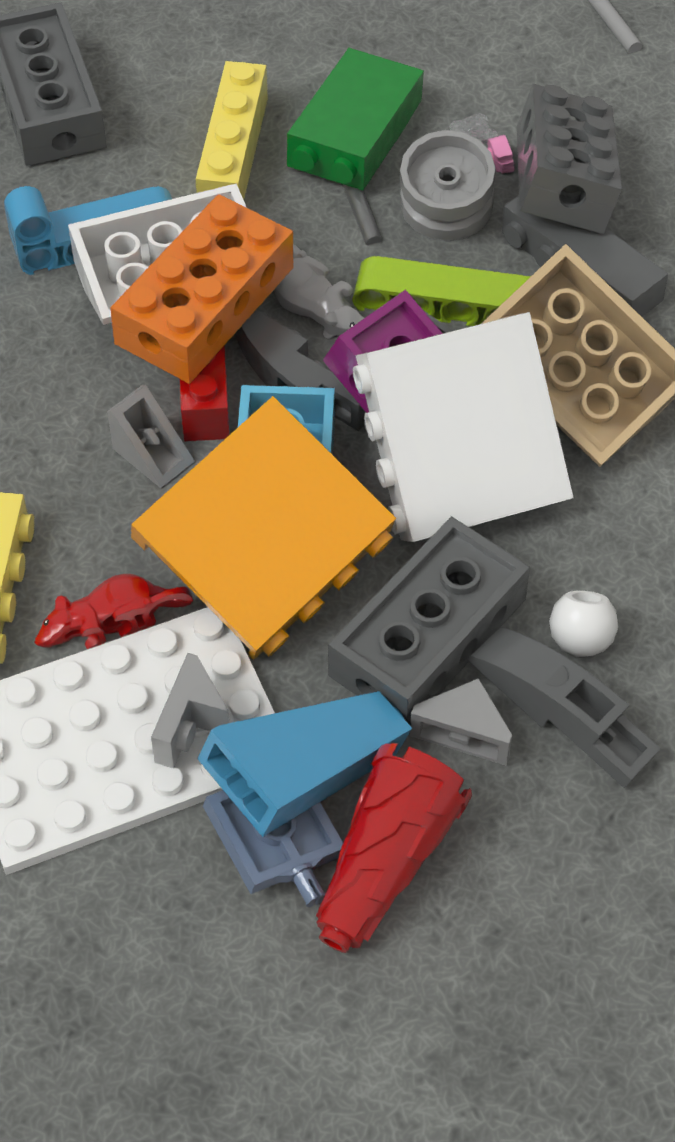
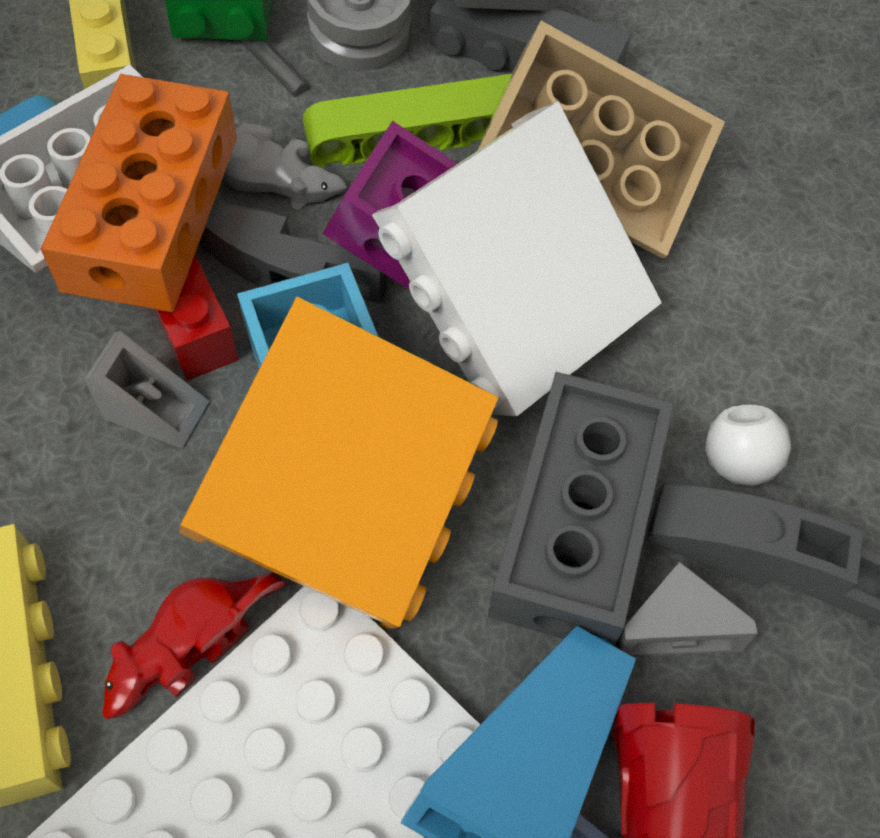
camera: 25 degrees left, 5 degrees up
(190, 705) = (356, 733): light grey slope -> none

